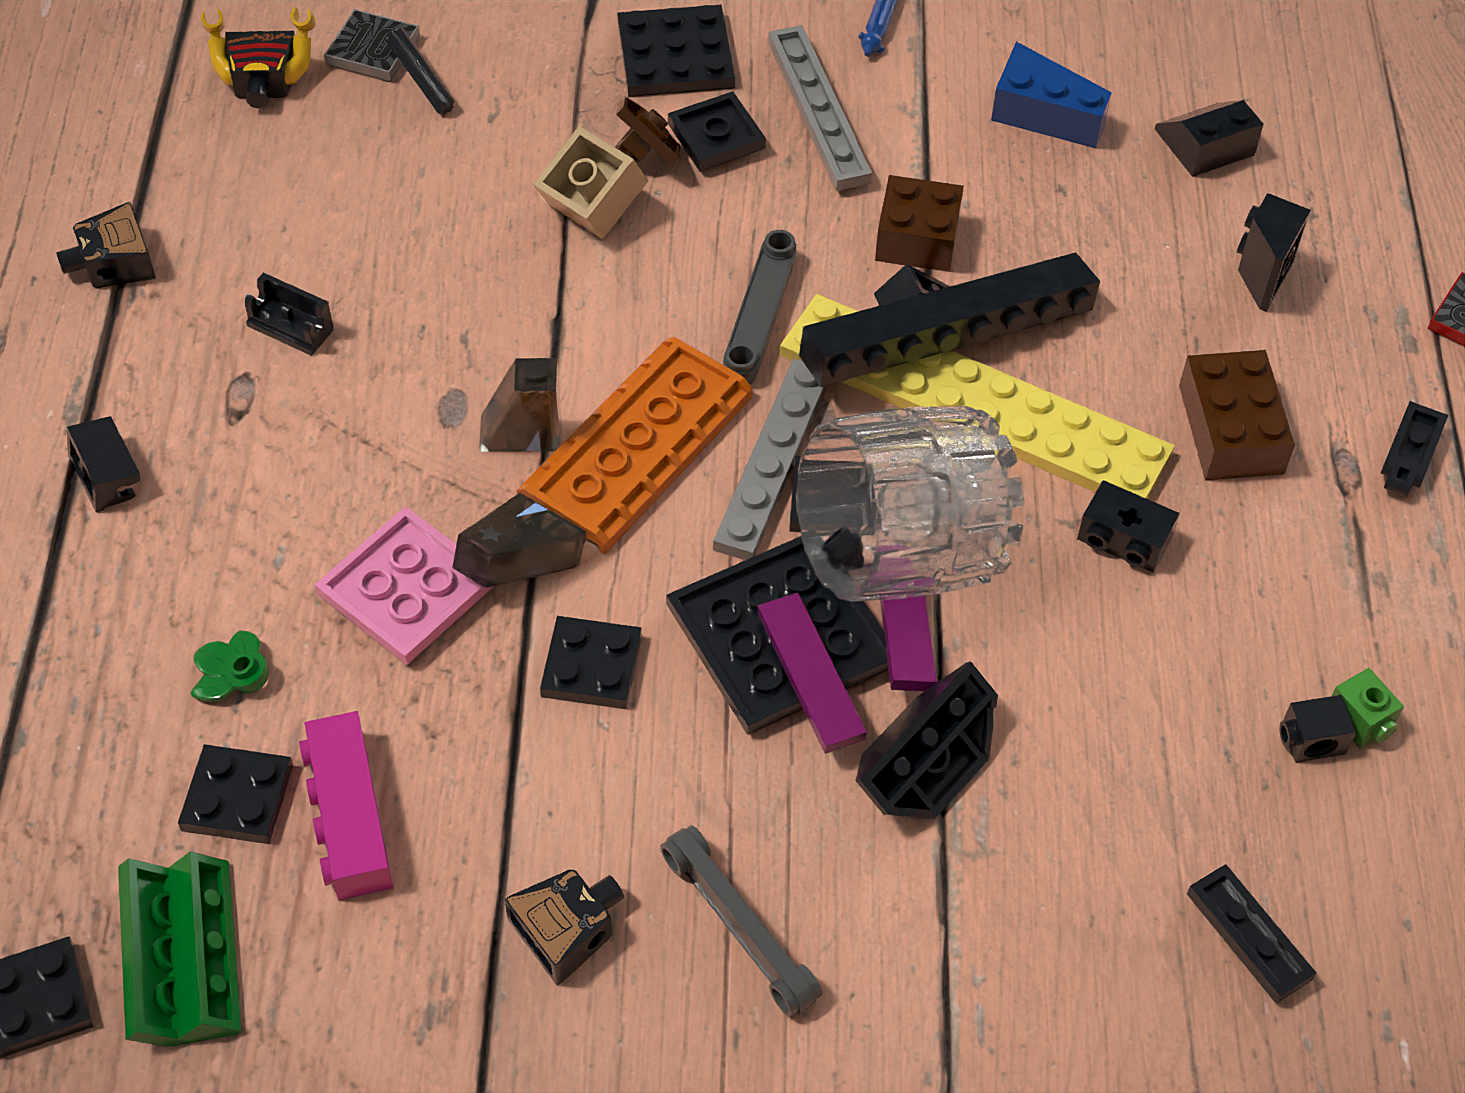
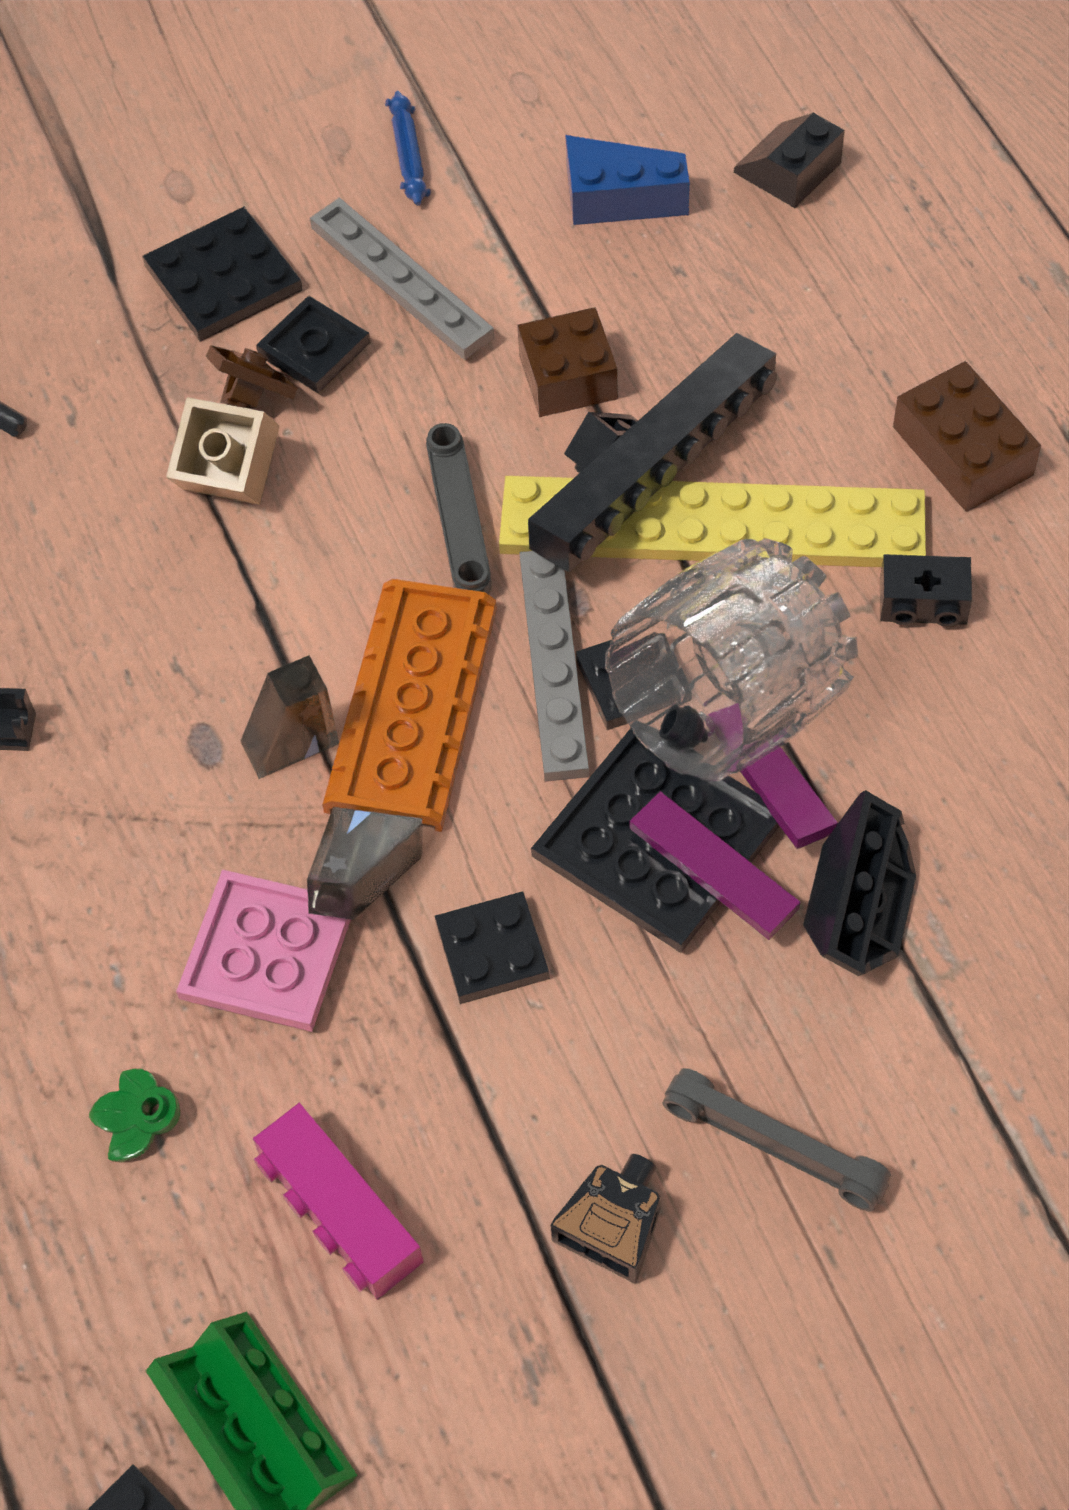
camera: 20 degrees left, 5 degrees up
(235, 794) = (215, 1240): black plate -> none
(1270, 246) = (914, 254): black slope -> none

